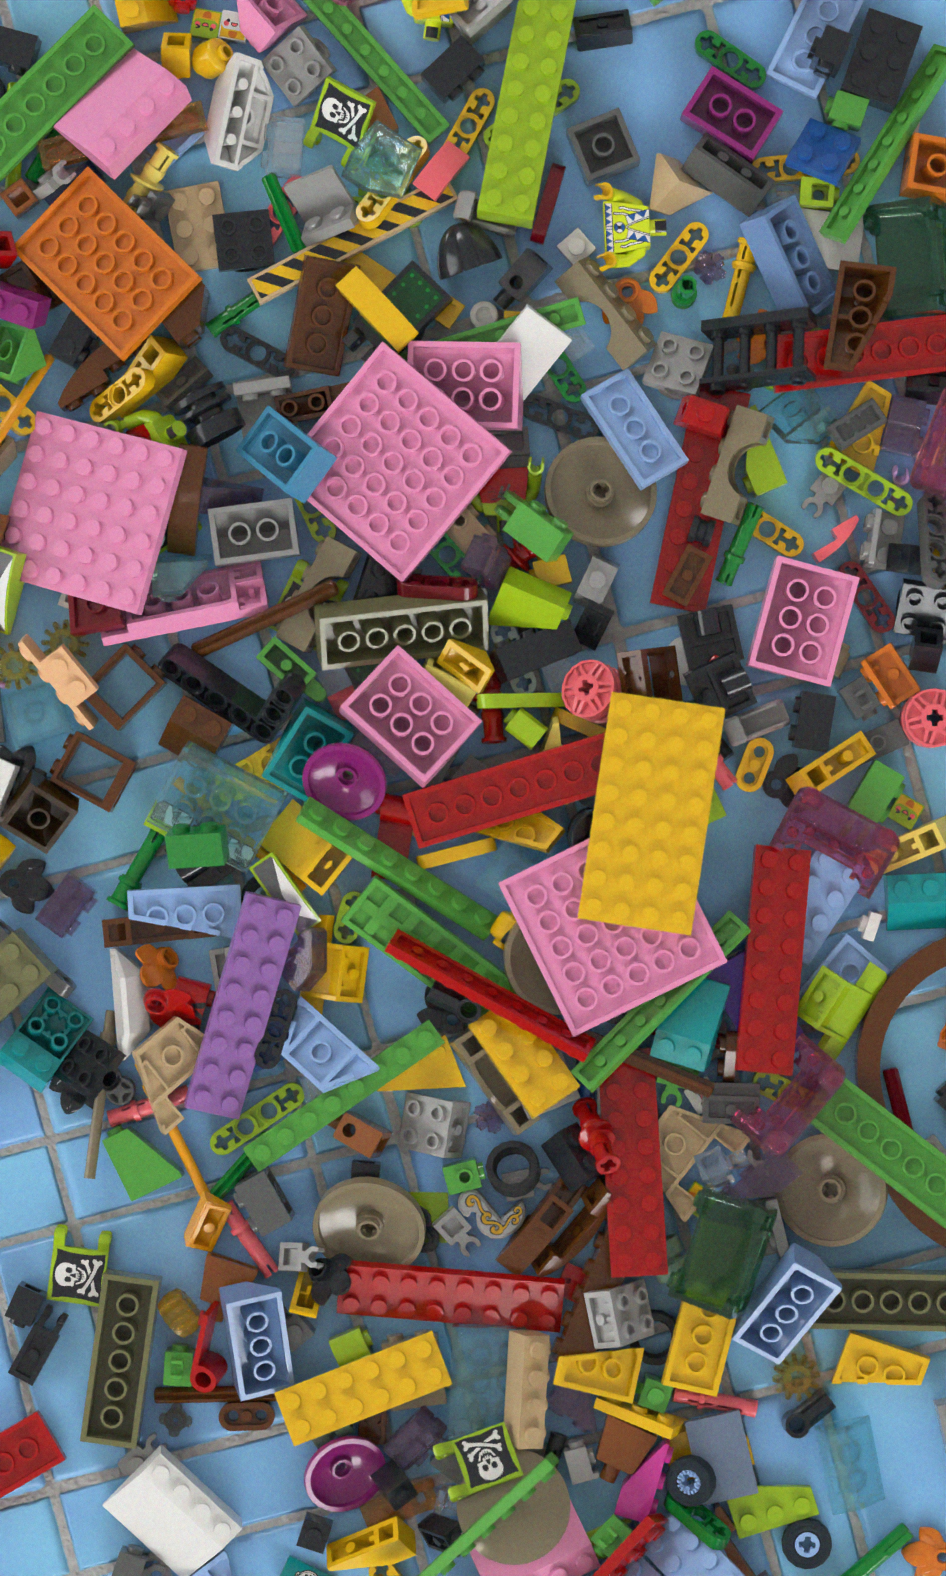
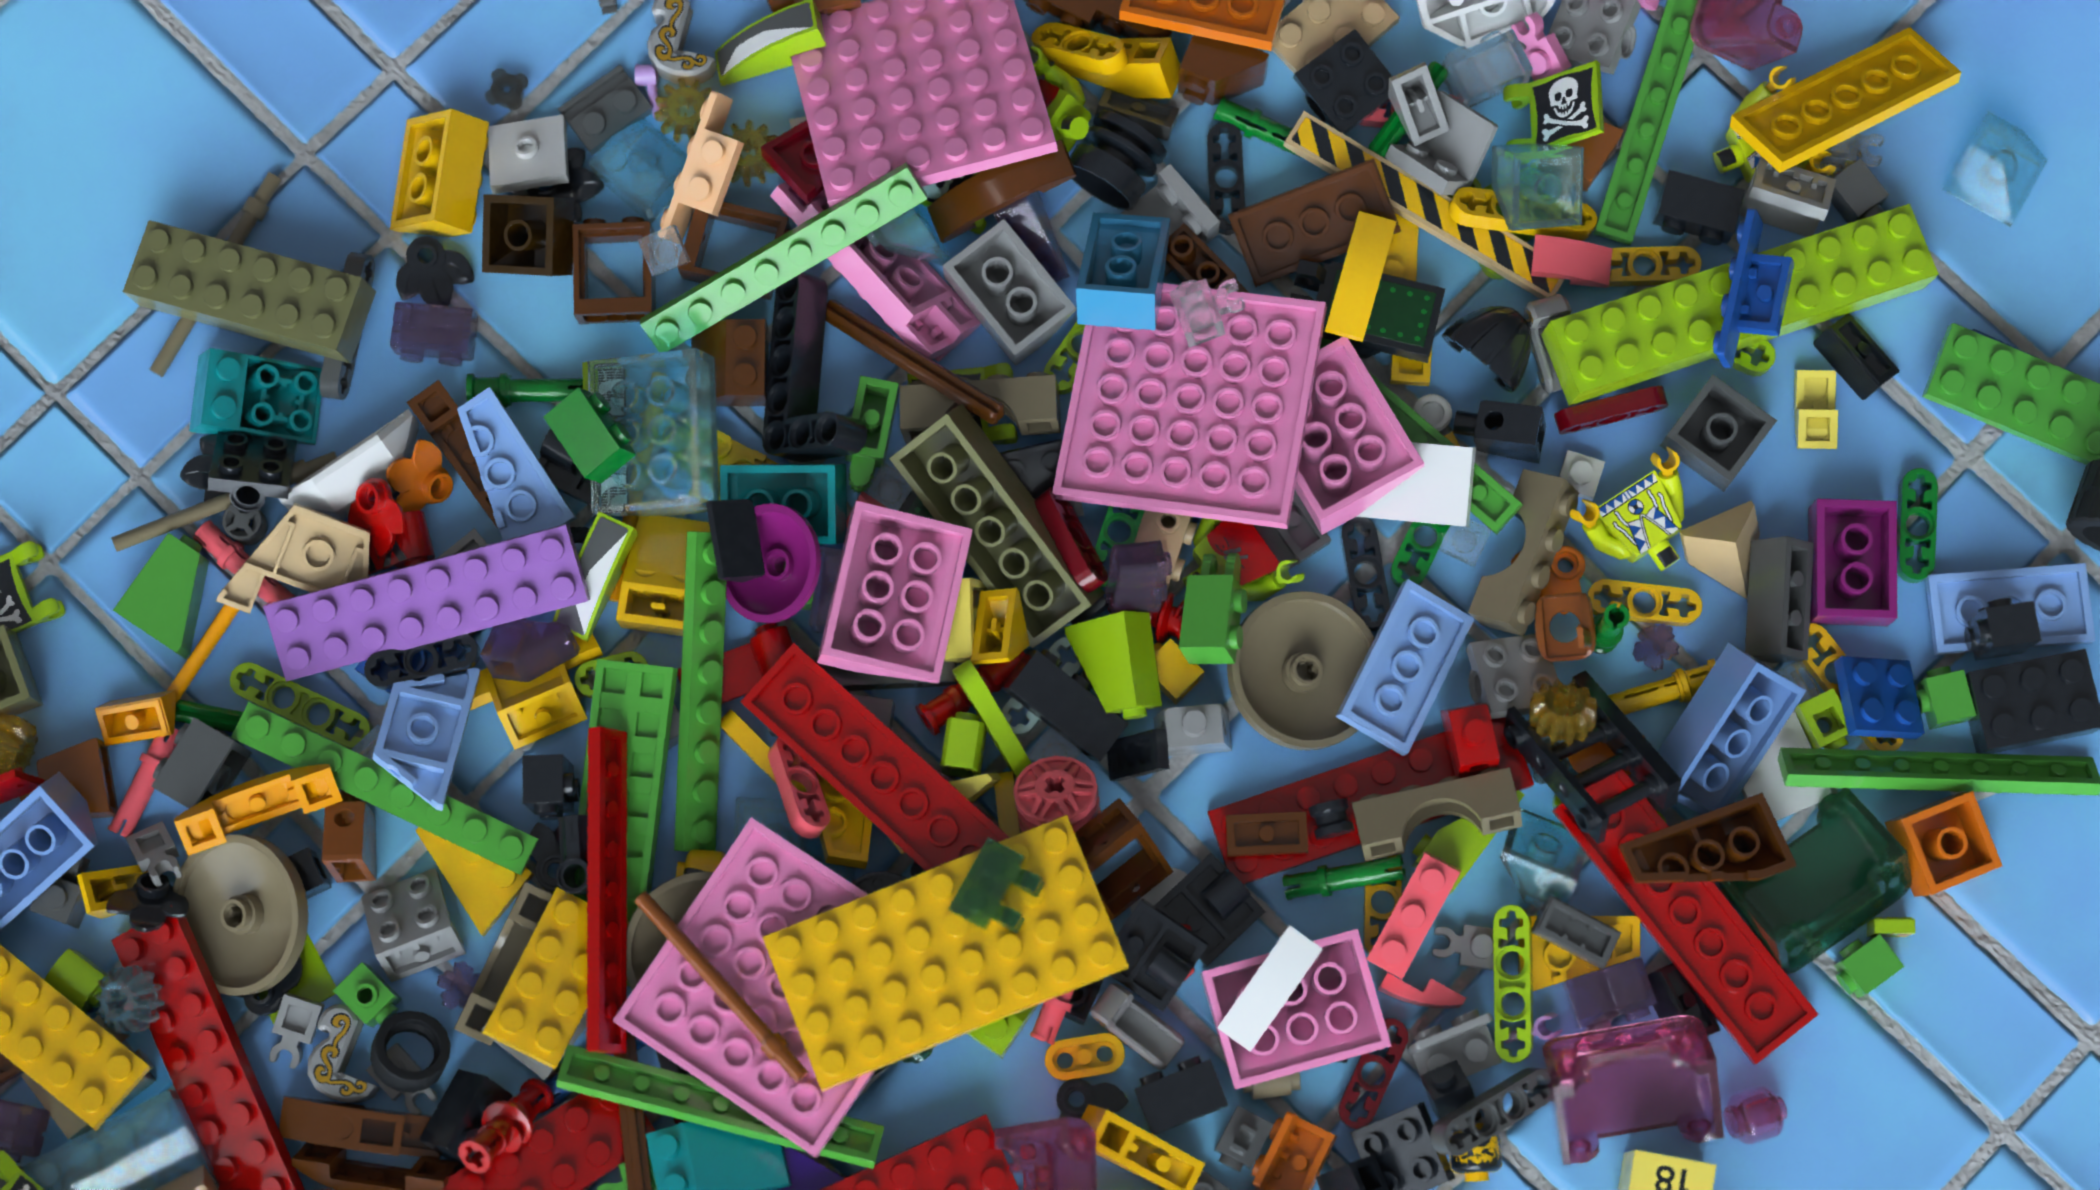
camera: 65 degrees right, 10 degrees down
(102, 733) = (664, 250): none -> clear plate
(153, 661) = (783, 258): none -> plate
(288, 206) = (1417, 104): none -> light grey slope
(294, 105) = (1542, 51): none -> bright pink plate
(307, 1177) = (255, 802): none -> light orange slope
(318, 794) = (735, 539): none -> black slope
(342, 423) = (1201, 311): none -> clear brick
(383, 1321) = (129, 999): none -> clear light blue gear
(401, 994) = (549, 785): none -> black brick
(511, 845) = (805, 810): none -> coral beam
(535, 71) = (1756, 291): none -> blue bracket
(621, 76) = (1815, 409): none -> light yellow slope
(628, 765) = (989, 882): none -> clear green plate
(646, 948) = (773, 1044): none -> dark orange bar
(686, 316) = (1583, 644): none -> dark orange piece
(722, 351) = (1563, 712): none -> clear yellow gear
(784, 630) = (1270, 988): none -> white slope
(790, 516) = (1414, 914): none -> coral arch

